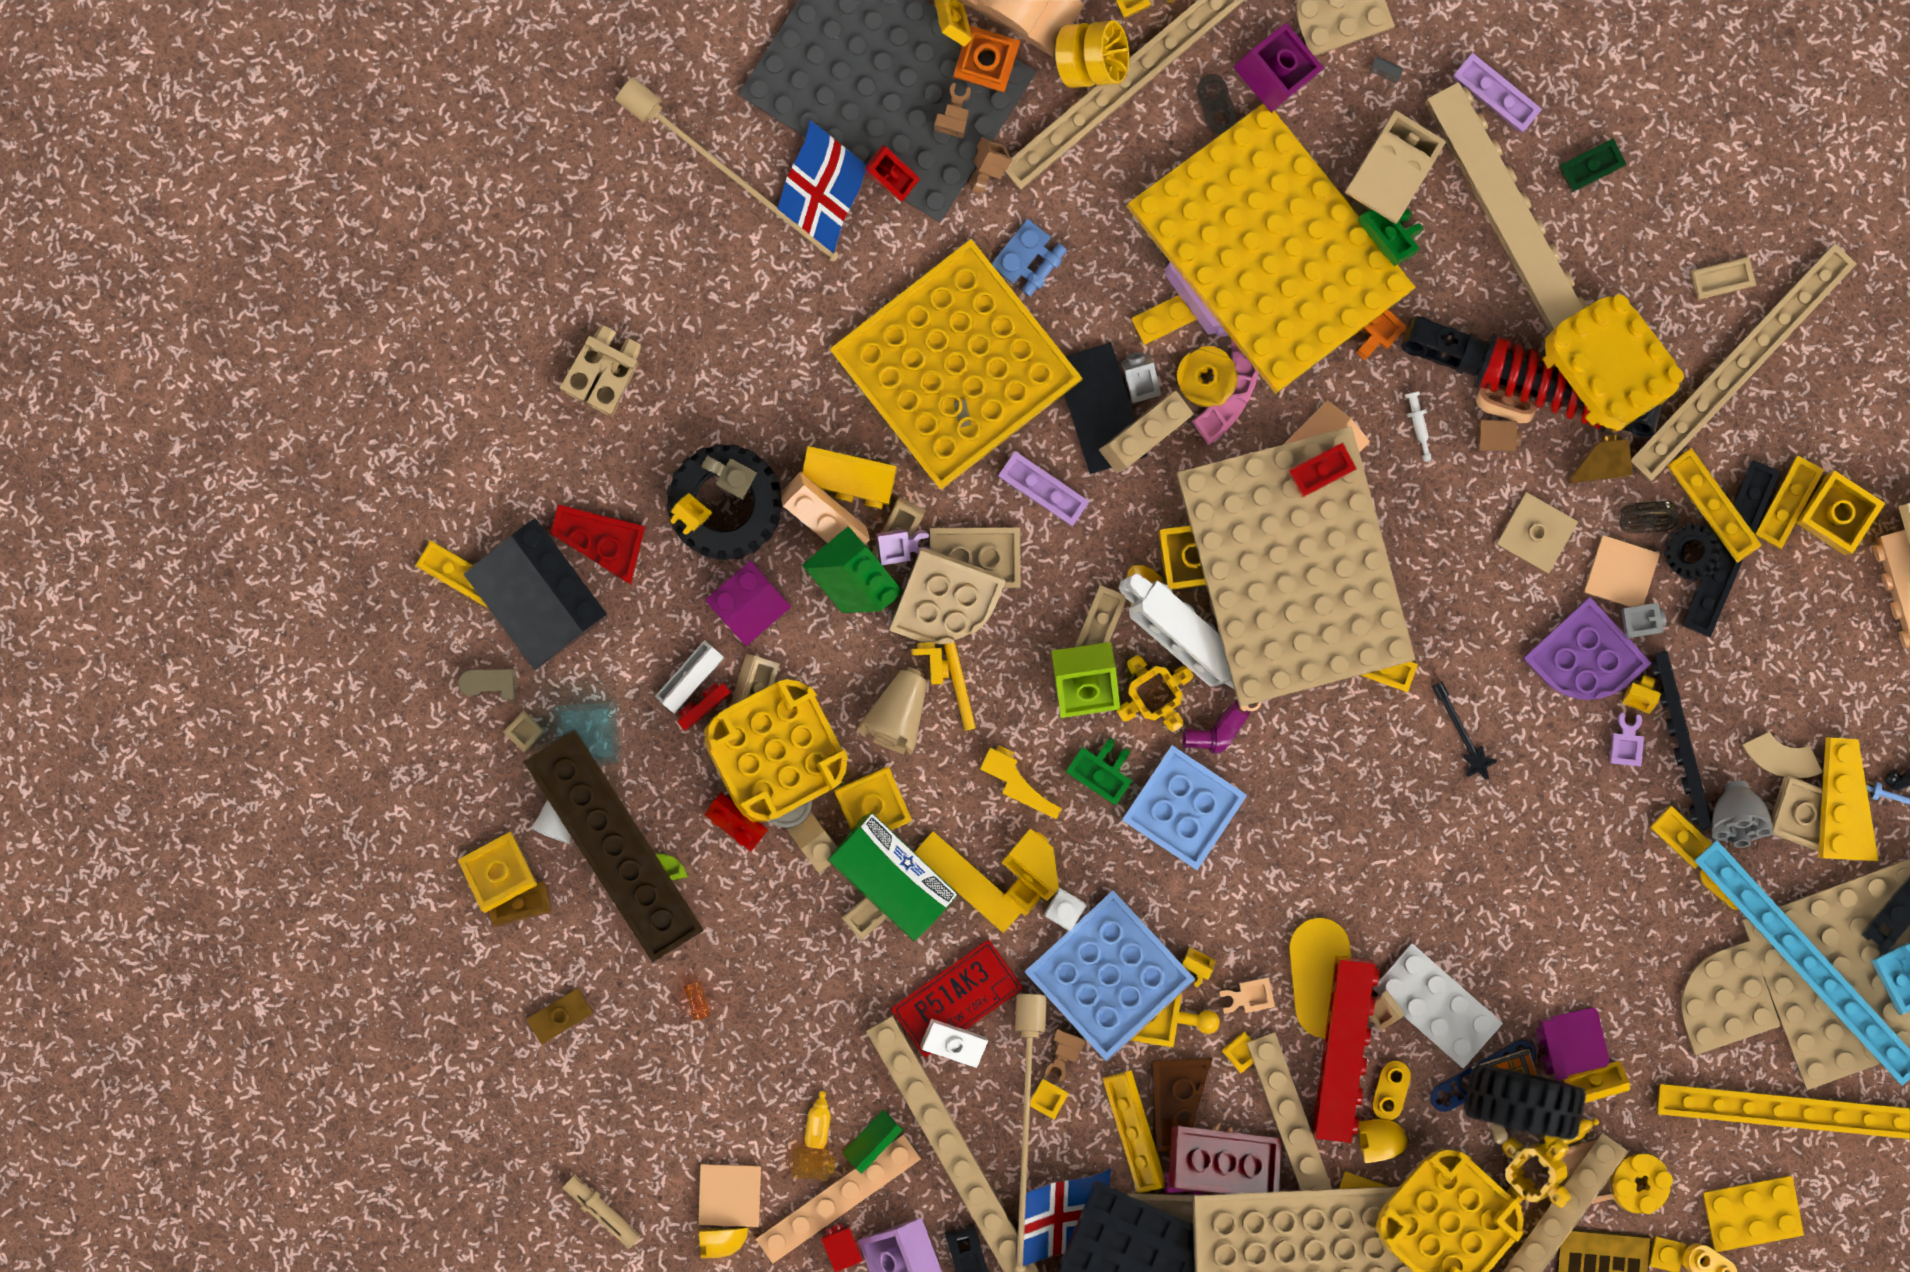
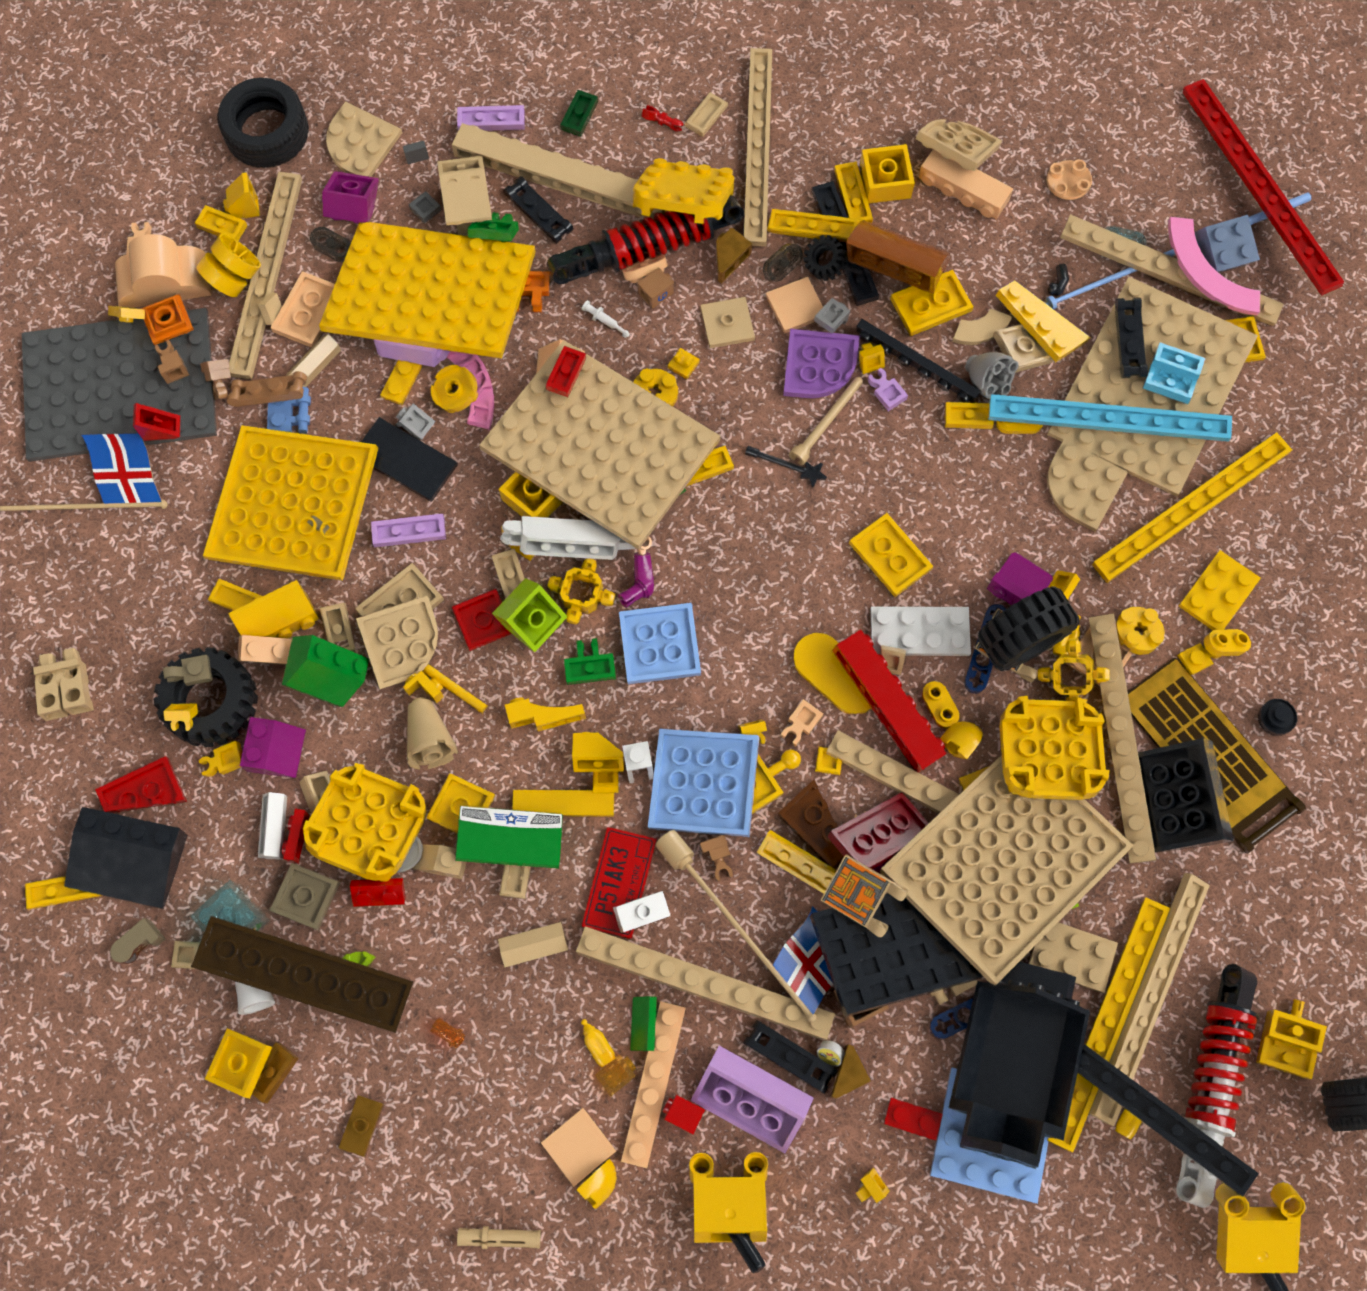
camera: 40 degrees left, 15 degrees down
(668, 769) = (304, 896): none -> dark tan plate
(697, 575) = (226, 759): none -> yellow plate
(827, 417) = (231, 595): none -> yellow tile
(834, 988) = (532, 944): none -> tan piece
(896, 545) = (342, 633): lavender plate -> none
(1025, 223) = (267, 390): none -> medium nougat plate
(1036, 635) = (478, 622): none -> red tile
(1048, 1098) = (734, 894): yellow plate -> none
(1094, 224) = (317, 358): none -> tan piece
(1098, 132) = (270, 307): none -> tan tile
(1133, 160) = (304, 310): none -> light nougat plate
(1146, 432) = (442, 444): tan brick -> none
(1153, 1202) = (858, 893): none -> flag
(1344, 142) = (425, 207): none -> dark grey plate
(1418, 547) = (663, 380): none -> yellow plate
(1455, 539) = (683, 363): none -> yellow tile
(1456, 242) = (538, 210): none -> black plate
(1477, 910) = (891, 555): none -> yellow plate
(1487, 733) = (803, 450): none -> tan piece
(1668, 234) = (652, 114): none -> red piece
(1756, 688) = (926, 310): none -> yellow plate
(1764, 618) = (897, 256): none -> dark orange slope

